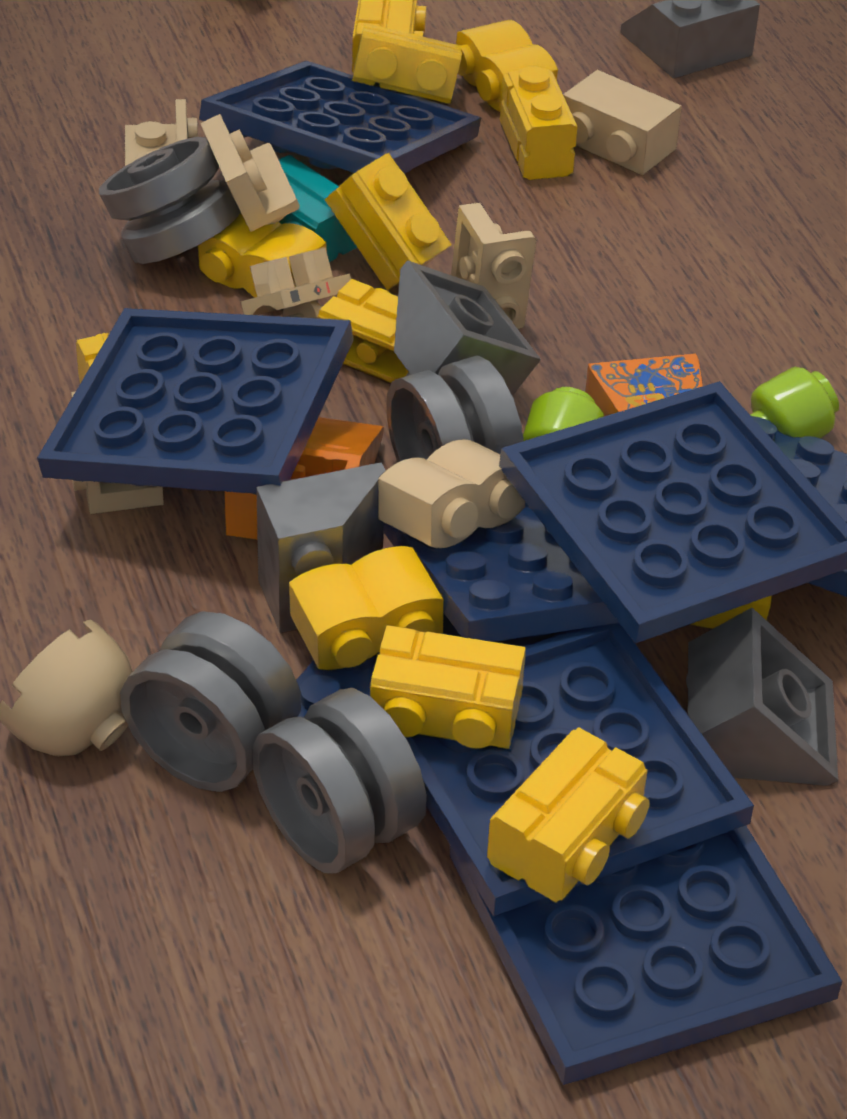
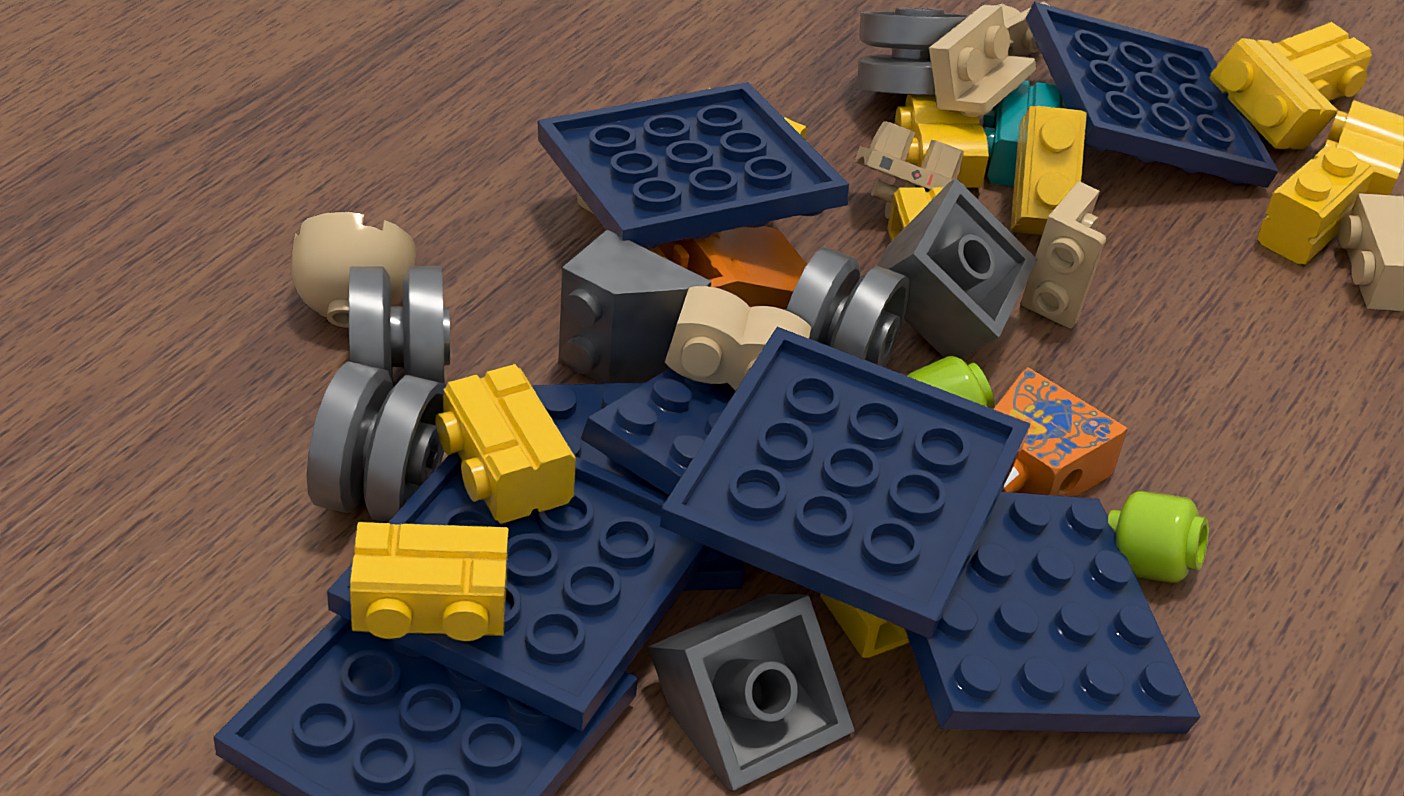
camera: 50 degrees right, 0 degrees up
(348, 606) = (580, 365): yellow brick -> none

